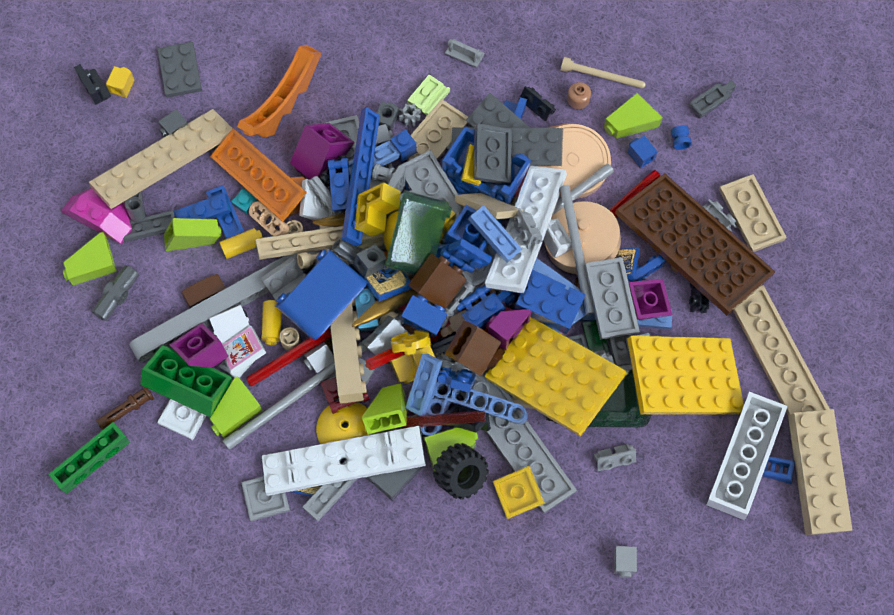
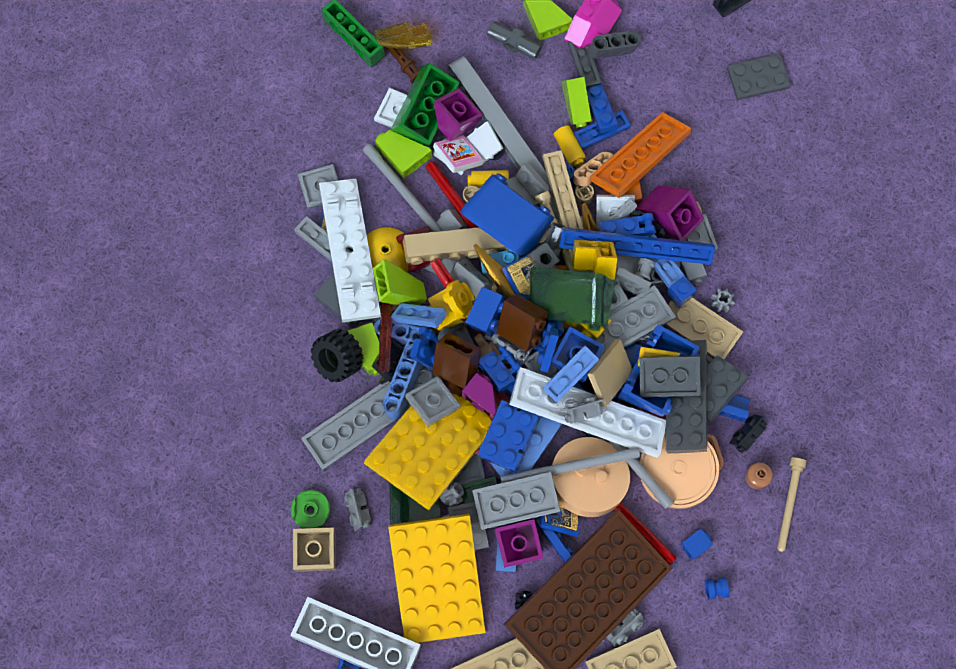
camera: 90 degrees right, 5 degrees up
(100, 402) = (404, 36): none -> clear yellow slope
(120, 81) = (738, 23): yellow brick -> none
(160, 159) = (653, 66): tan plate -> none
(171, 123) = (692, 75): dark grey brick -> none
(202, 290) = (520, 117): reddish brown slope -> none
(244, 200) = (614, 145): teal plate -> none
(281, 101) = (726, 173): orange arch -> none
(388, 109) = (711, 281): dark grey brick -> none
(428, 94) = (748, 319): yellowish green plate -> none
(464, 53) = (803, 355): light grey hinge -> none
(512, 373) = (432, 401): none -> light grey tile
(518, 492) = (320, 413): yellow tile -> none
(557, 238) = (586, 447): white slope -> none
(619, 493) = (308, 499): none -> bright green plate
(625, 561) = (252, 516): light grey brick -> none
(632, 118) = (736, 533): lime slope -> none
(659, 496) = (314, 549): none -> tan brick
(712, 98) = (768, 625): dark grey hinge -> none

